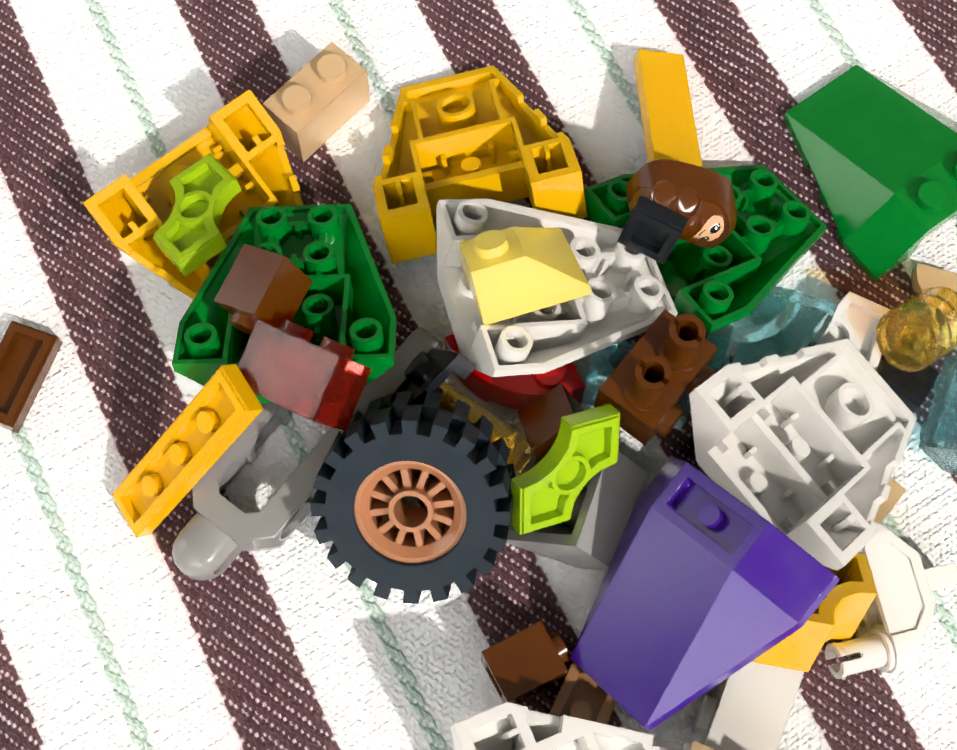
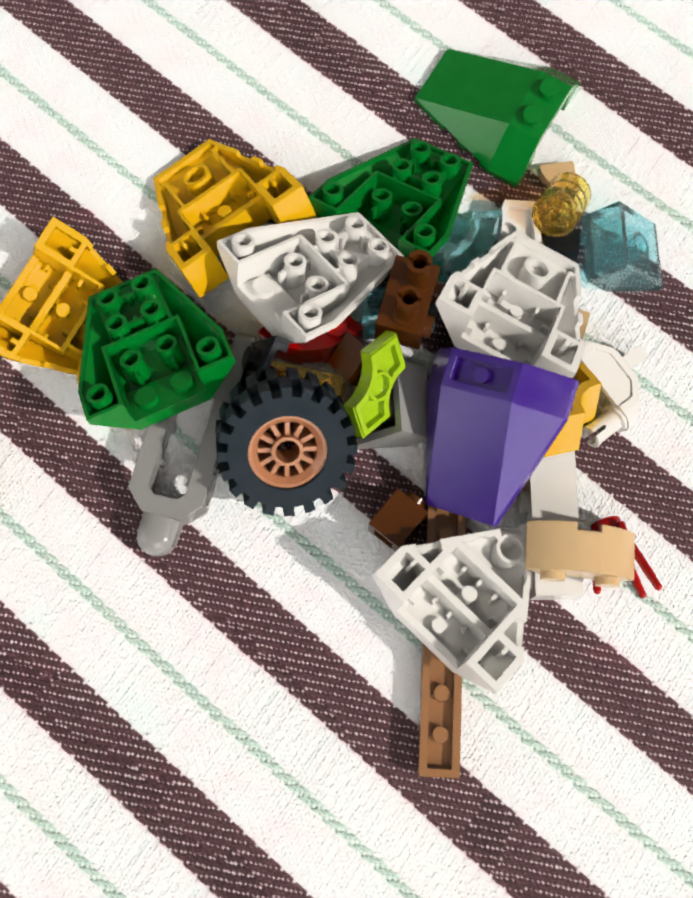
camera: 20 degrees left, 5 degrees up
(187, 450) = (120, 473): yellow tile -> none
(193, 229) = (56, 327): lime tile -> none
(262, 289) = (126, 348): reddish brown brick -> none
(304, 376) = (178, 392): clear red brick -> none
(318, 100) = (102, 206): tan brick -> none
(520, 271) = (292, 267): light yellow slope -> none
(652, 229) = (365, 206): black tile -> none
(666, 107) = (345, 137): yellow tile -> none
(692, 192) = (377, 180): reddish brown piece -> none

